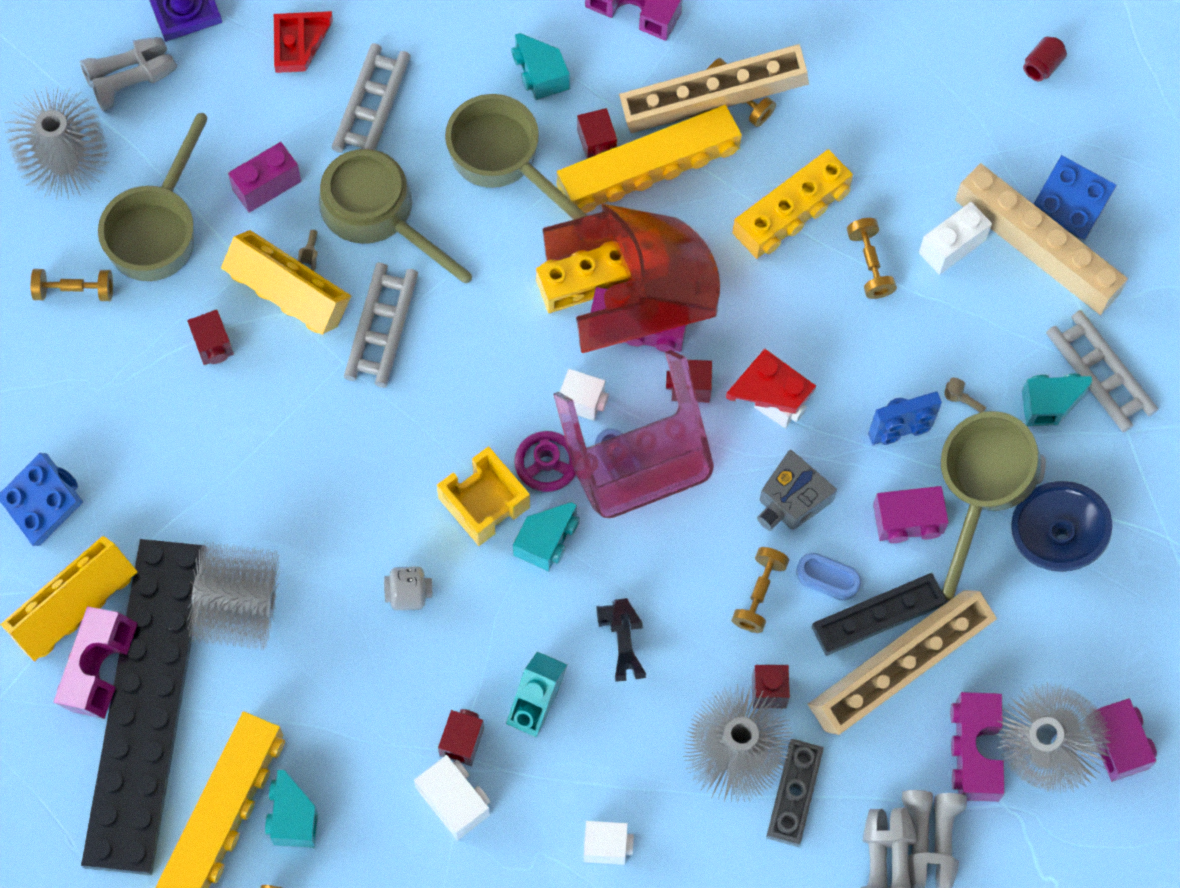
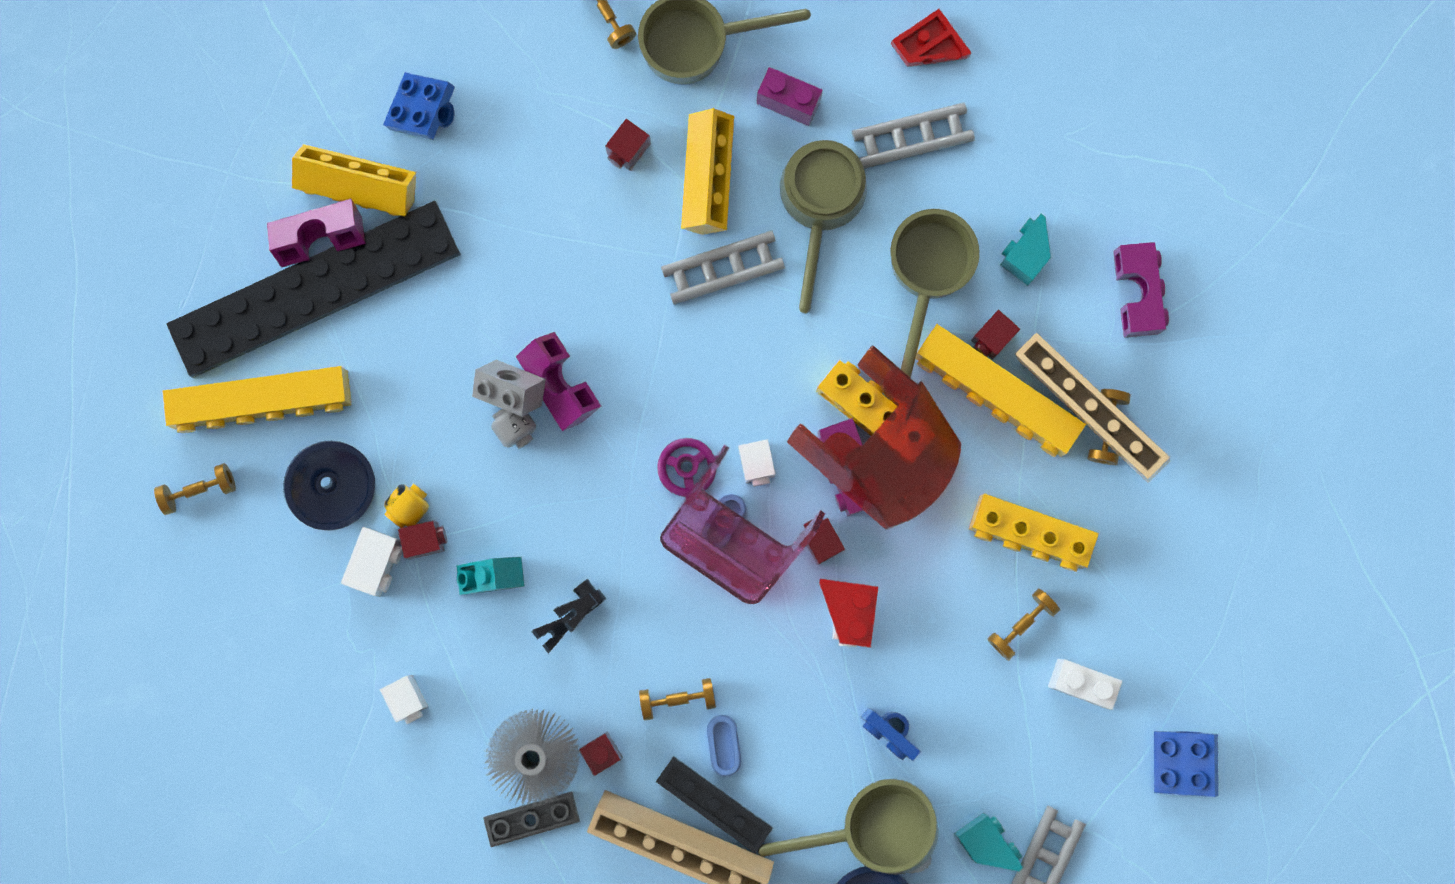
camera: 60 degrees right, 15 degrees up
(233, 595) = (419, 302): light grey piece -> none
(293, 814) = (281, 449): teal slope -> none
(308, 253) = (747, 172): dark tan hand -> none
(359, 777) = (339, 502): none -> dark blue dish
(365, 528) = (566, 403): none -> magenta arch
(369, 567) = (508, 387): none -> light grey brick
(418, 734) = (406, 505): none -> yellow head
(484, 497) = (620, 438): yellow piece -> none
(543, 535) = (620, 503): teal slope -> none
(794, 493) = (773, 679): dark grey torso -> none
(910, 514) = (814, 783): magenta brick -> none
(954, 393) = (947, 758): dark tan hand -> none
(1042, 239) = (1129, 756): tan brick -> none
(1044, 58) = (1308, 666): dark red brick -> none

